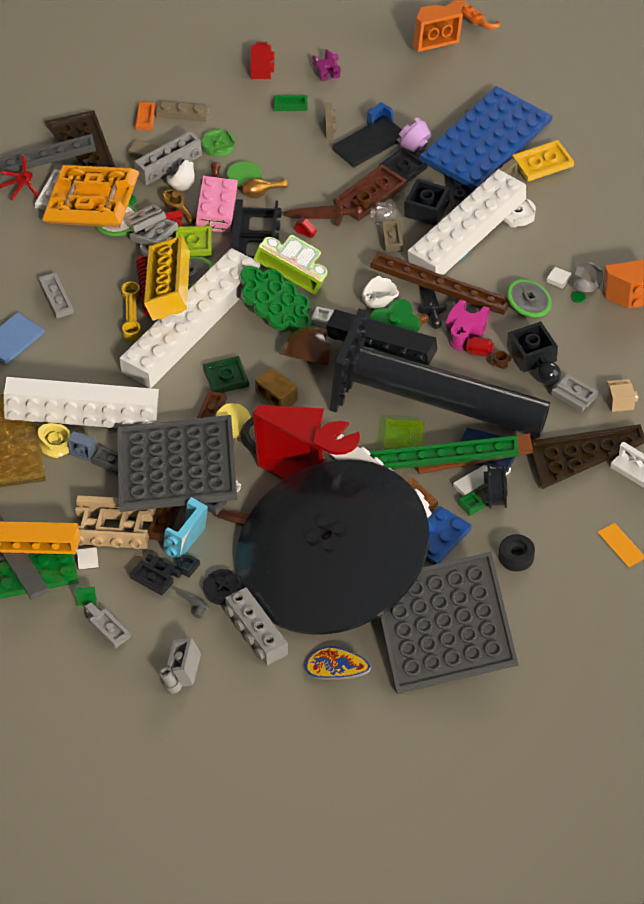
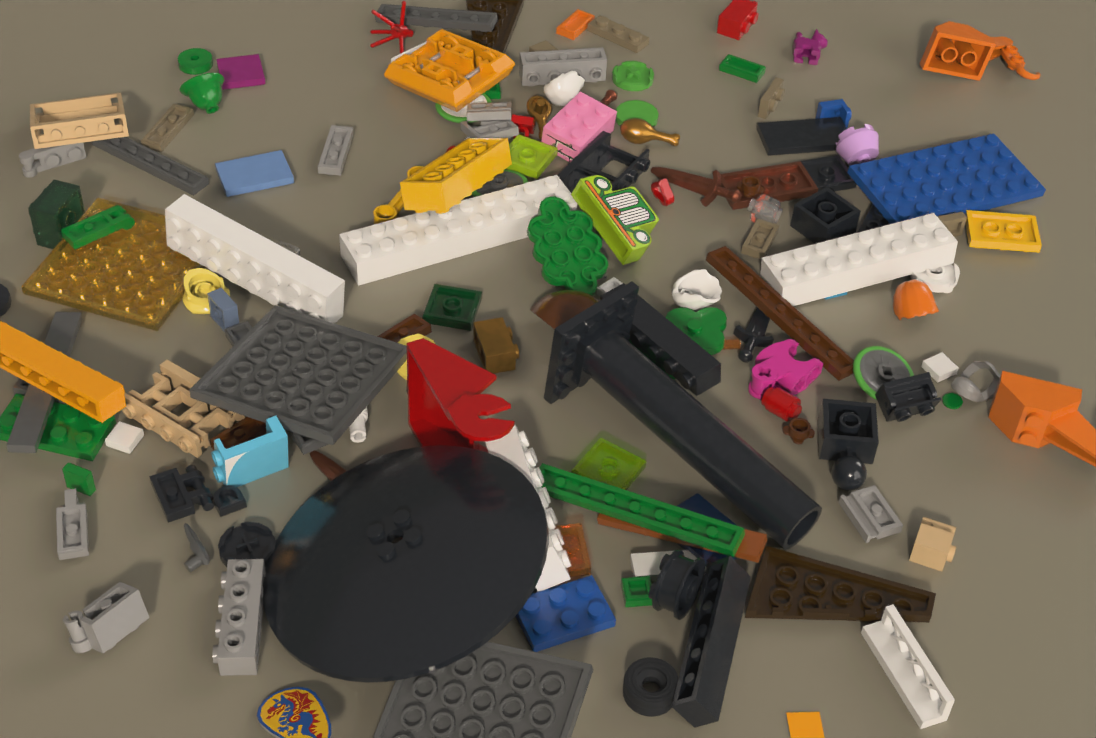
camera: 25 degrees right, 5 degrees down
(517, 238) = (913, 299): none -> orange hair
(535, 510) = (711, 643): none -> black brick
(553, 308) = (907, 397): none -> black hinge

